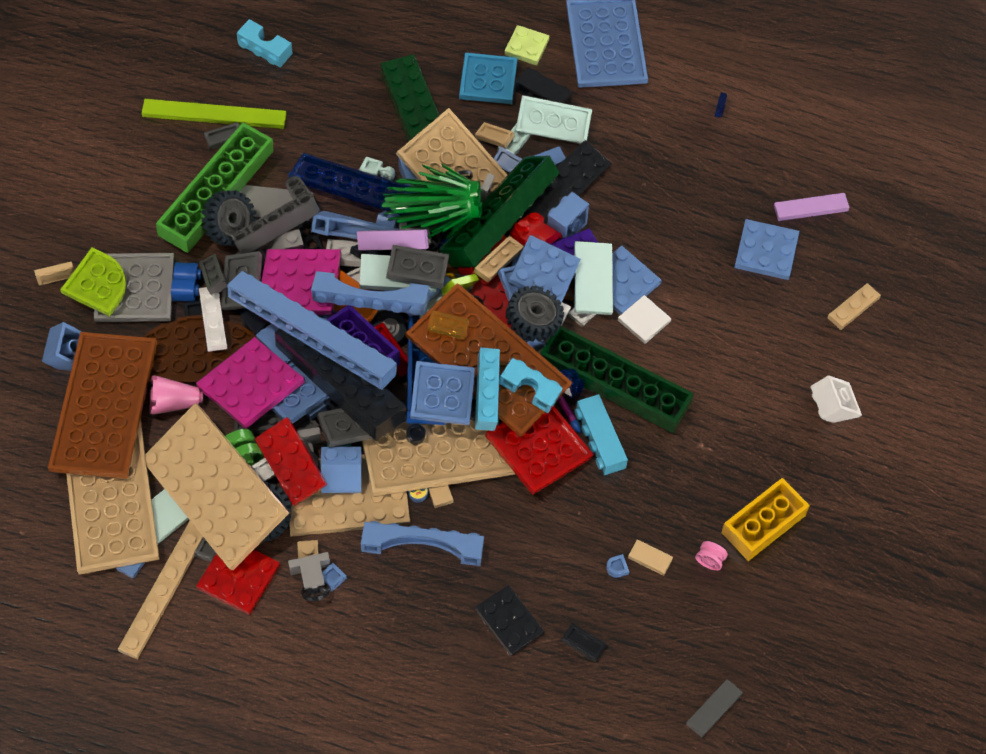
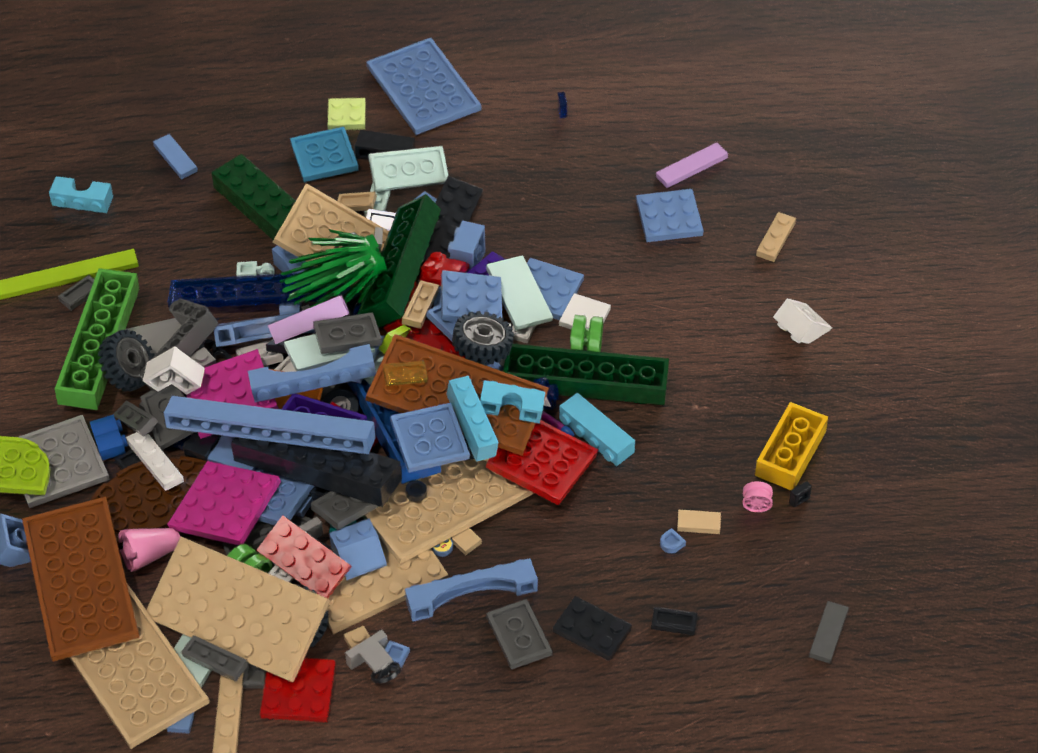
camera: 20 degrees left, 10 degrees down
(179, 522) = (214, 658): none -> dark grey plate
(259, 245) = (175, 369): none -> white brick
(361, 34) = (175, 156): none -> medium blue tile
(443, 601) = (519, 634): none -> dark grey plate
(632, 342) = (586, 337): none -> bright green wheel
(752, 567) = (800, 494): none -> black tile

